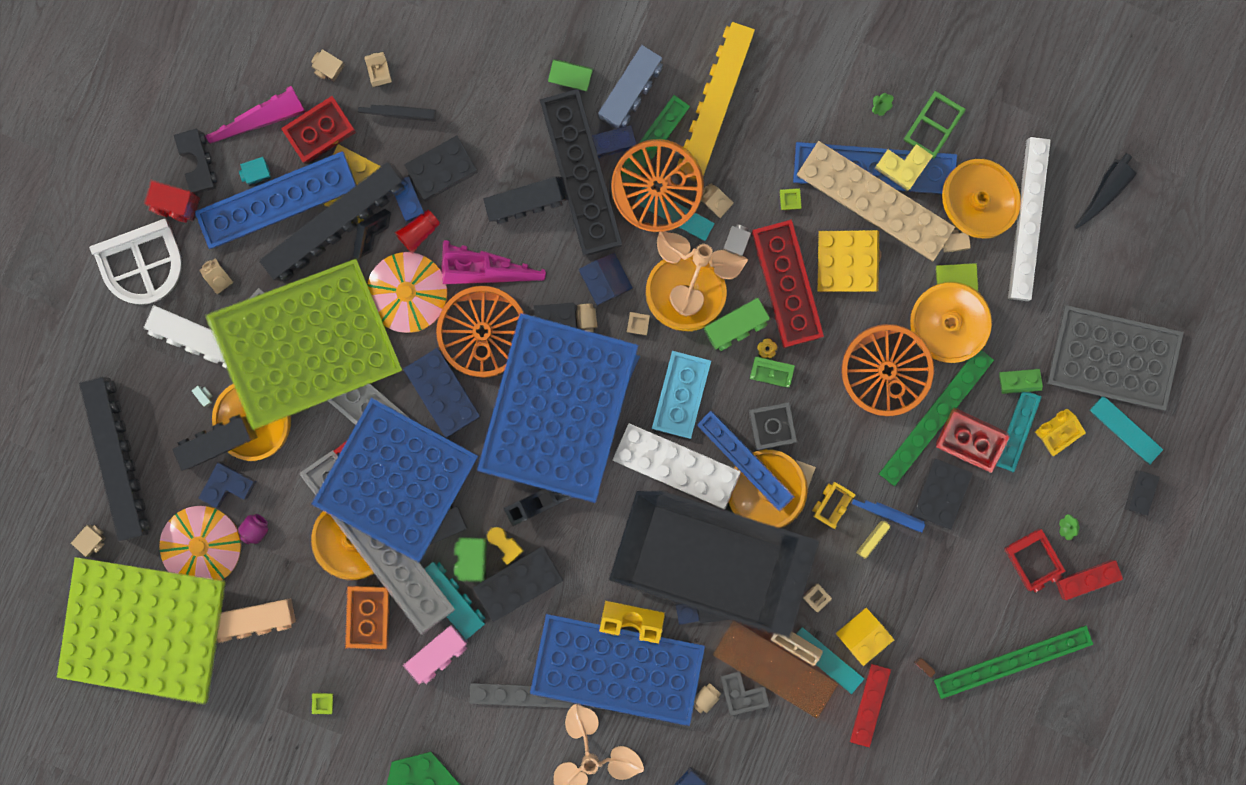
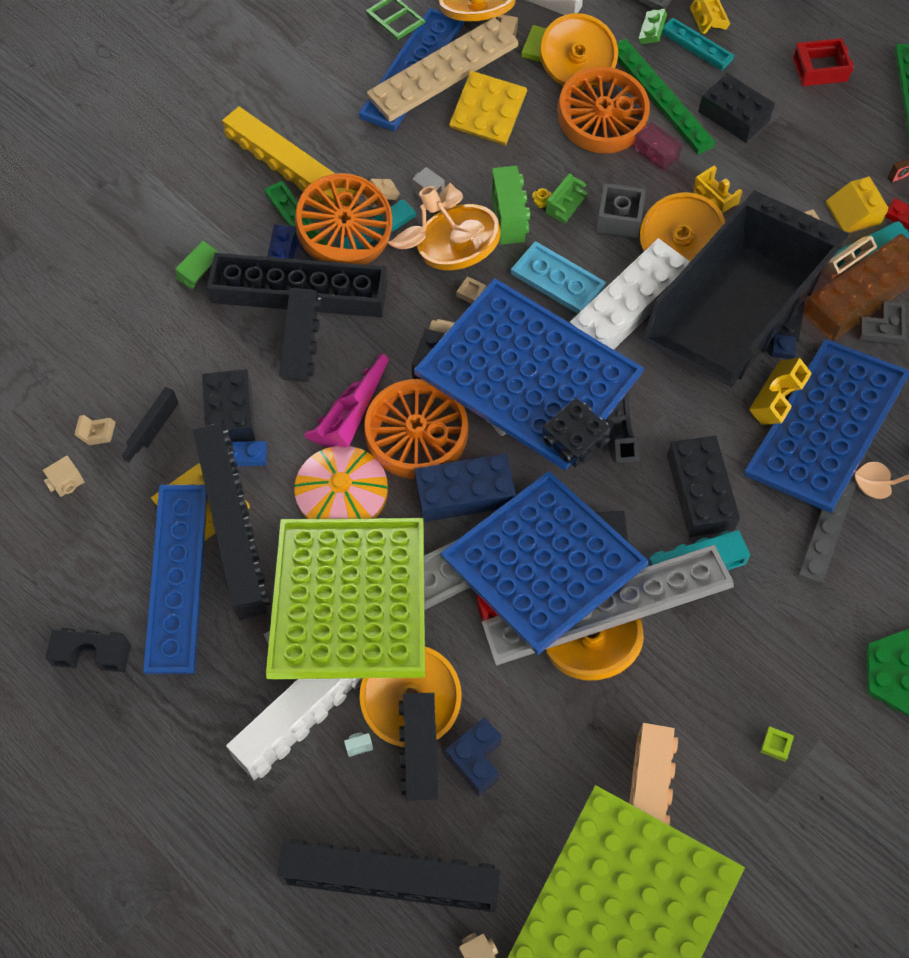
camera: 65 degrees left, 25 degrees down
(132, 240) = (139, 759): white window -> none
(172, 201) = (117, 681): red brick -> none
(200, 543) = (532, 817): dish -> none
(215, 276) = (227, 677): tan bracket -> none
(253, 529) = (540, 745): magenta head -> none
(255, 171) = (133, 590): teal brick -> none
(274, 110) = (80, 543): dark pink wedge -> none
(318, 130) = (125, 506): red brick -> none
(367, 617) = (690, 651): orange brick -> none
(368, 230) = (255, 490): black plate -> none
(417, 230) = (281, 452): red plant -> none
(436, 655) = (758, 590): bright pink brick -> none
(471, 558) = (661, 510): bright green brick -> none
(504, 469) = (576, 433): none -> black brick
(509, 547) = (656, 479): yellow legs -> none
(605, 279) = (414, 306): dark blue slope -> none
(630, 88) = (238, 214): sand blue brick -> none
(706, 698) = (881, 351): tan brick -> none
(745, 460) = (639, 241): blue plate -> none
(787, 283) = (474, 154): red brick -> none
(790, 199) = (409, 135): lime plate -> none
(866, 435) = (657, 146): none -> clear pink brick
(873, 539) = (763, 165): light yellow tile -> none
(882, 104) = (356, 45): bright green plant -> none
(891, 514) = (744, 148): blue piece -> none
(904, 171) = (422, 38): light yellow brick -> none
(972, 440) = (694, 67): red brick -> none
(1069, 527) = (795, 35): bright green plant -> none
(1089, 579) = (854, 29): red brick -> none

